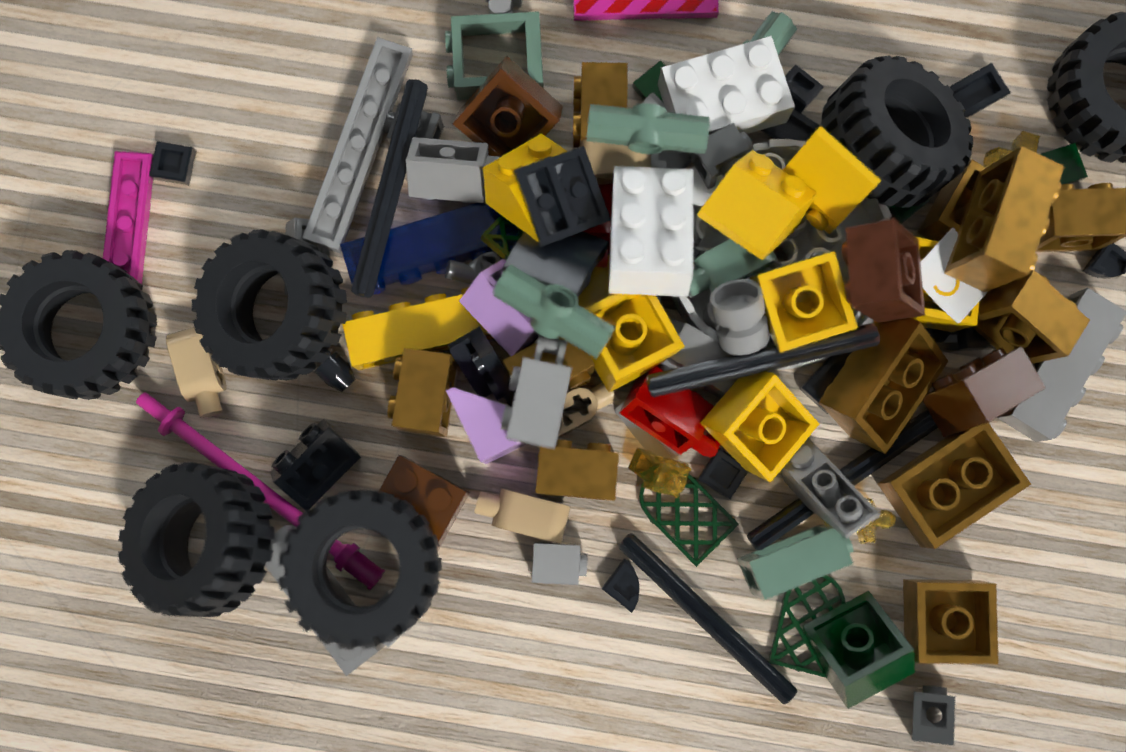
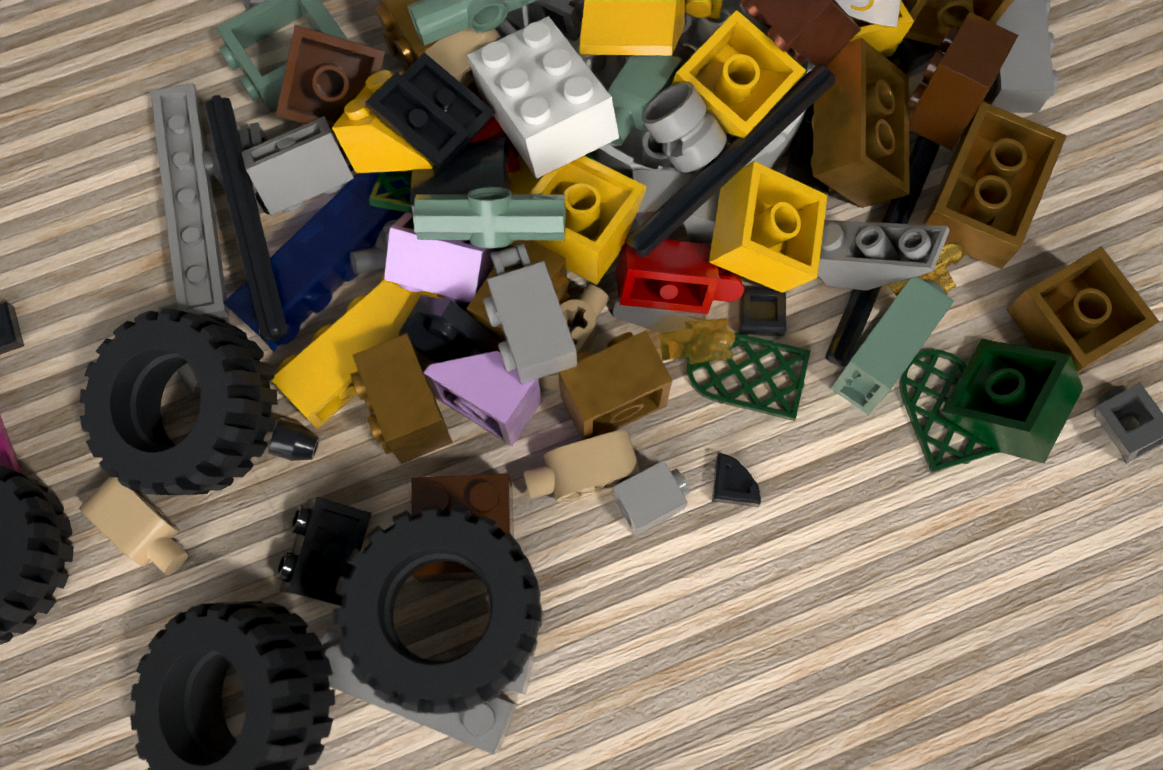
camera: 30 degrees left, 10 degrees down
(345, 555) = (415, 629): dark pink bar -> none
(708, 618) = (842, 463): black axle -> none

